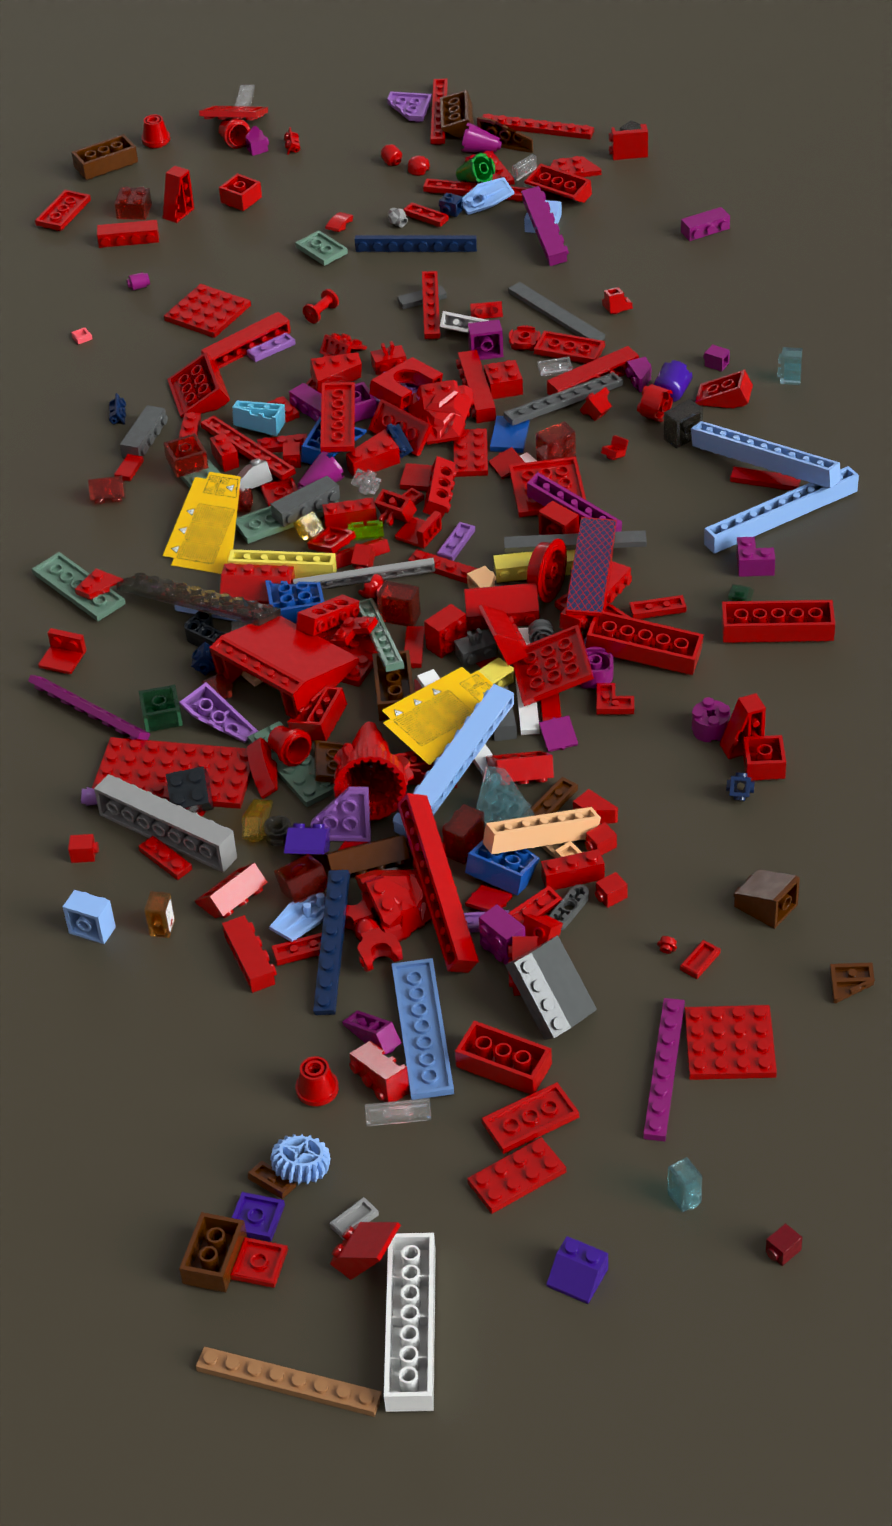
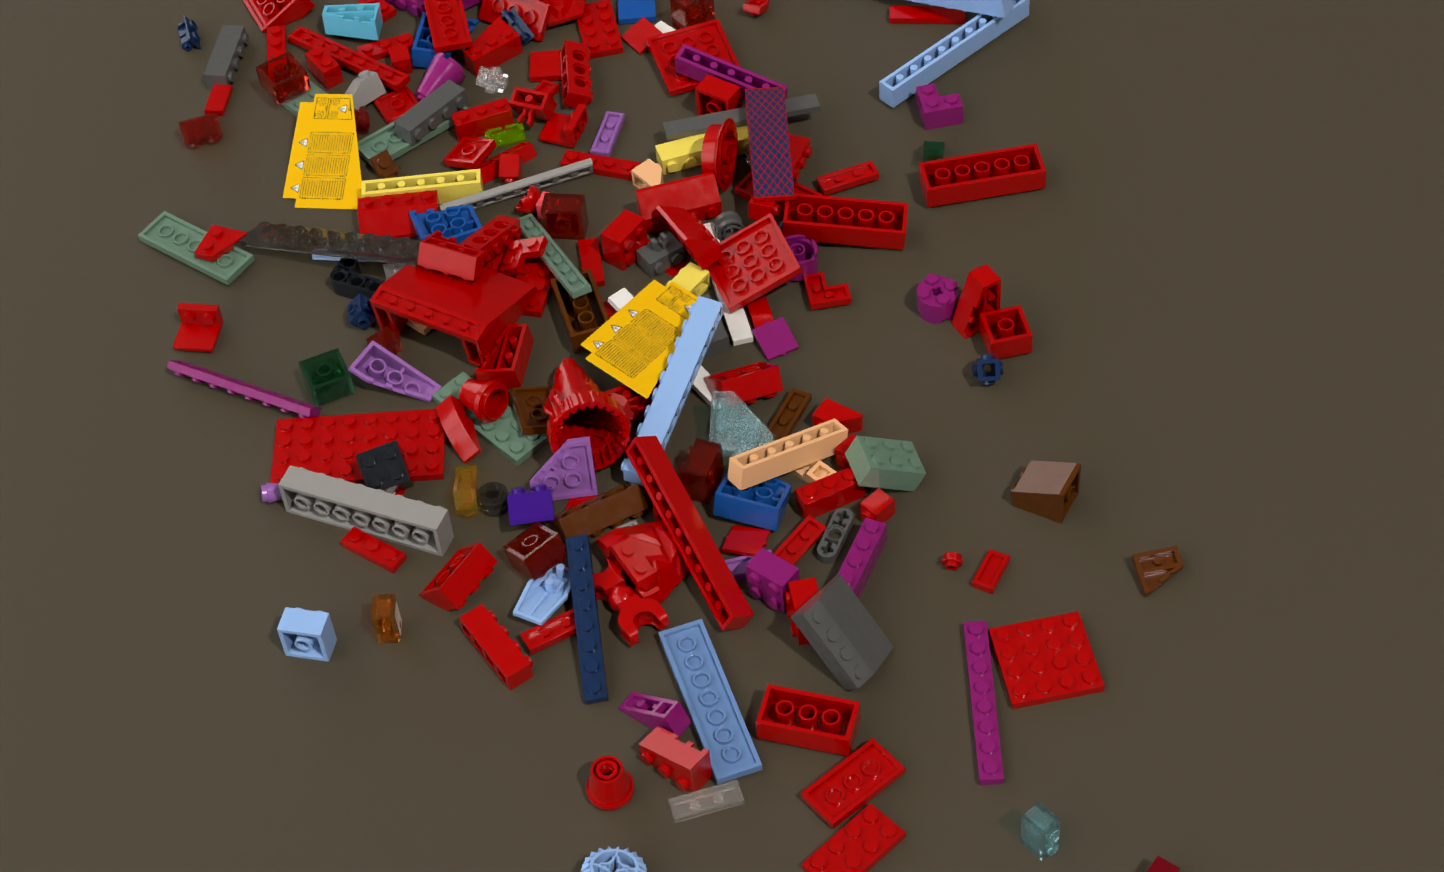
camera: 10 degrees left, 5 degrees up
(82, 848) = (278, 554): red brick -> none
(254, 539) = (384, 165): none -> reddish brown bracket
(287, 621) = (450, 257): none -> red wedge
(308, 526) = (440, 140): clear yellow brick -> none
(542, 926) = (815, 564): red brick -> none
(588, 927) = (863, 554): none -> magenta brick
(626, 851) = (885, 463): none -> sand green brick

